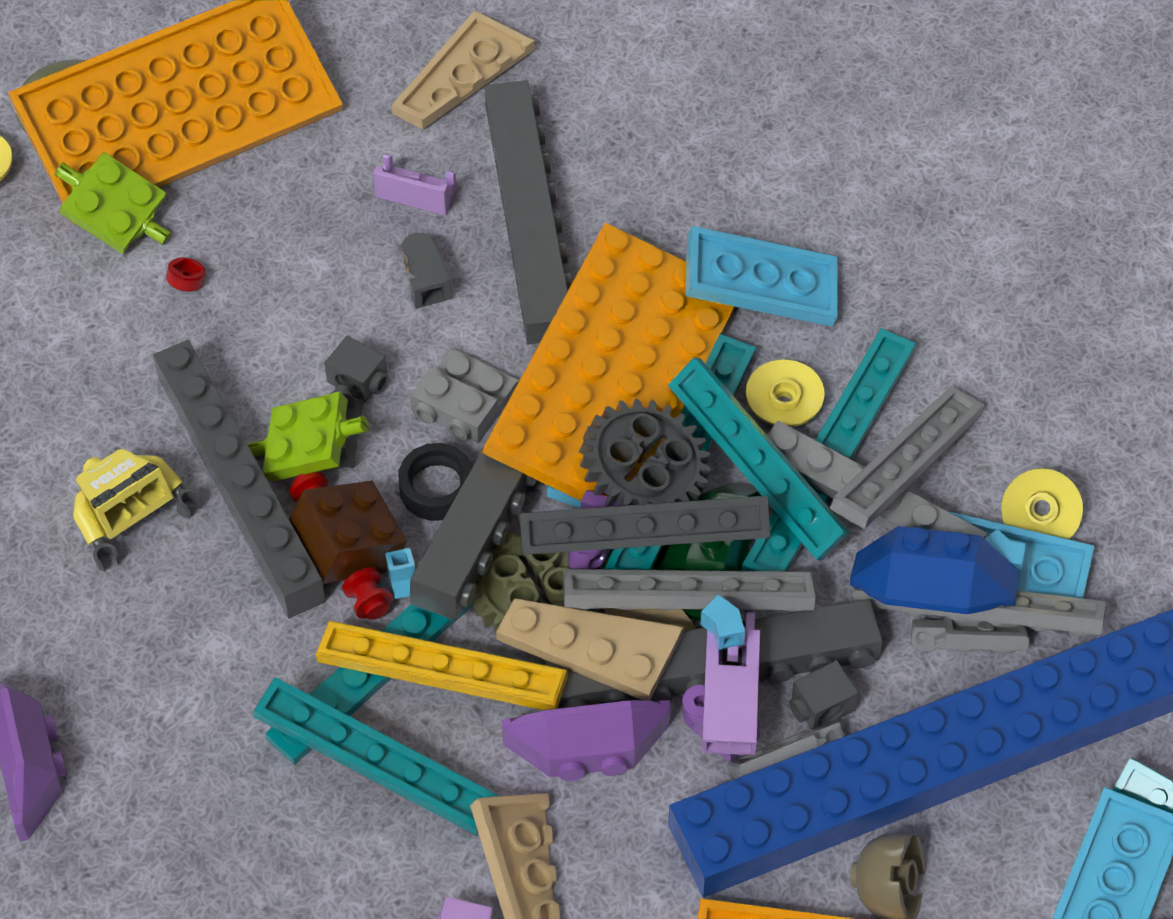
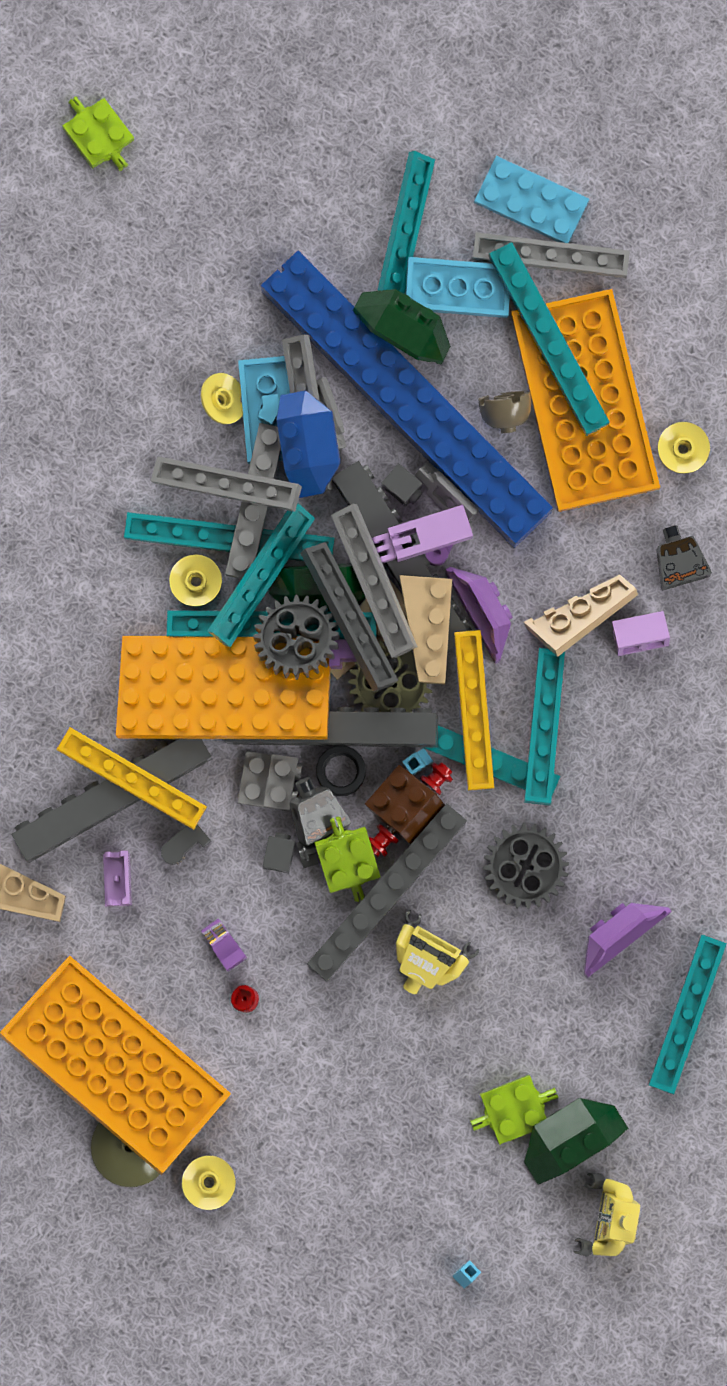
camera: 110 degrees left, 25 degrees up
(112, 203) = (212, 1069): lime plate -> none
(155, 686) = (547, 876): none -> dark grey gear
(268, 271) = (223, 945): none -> medium lavender leg
(395, 422) = (313, 812): none -> dark grey torso
(536, 224) = (131, 778): none -> yellow tile
(724, 622) = (394, 547): medium azure piece -> none
(761, 276) = (115, 623): medium azure plate -> none
(1069, 769) = (404, 324): none -> dark green wedge

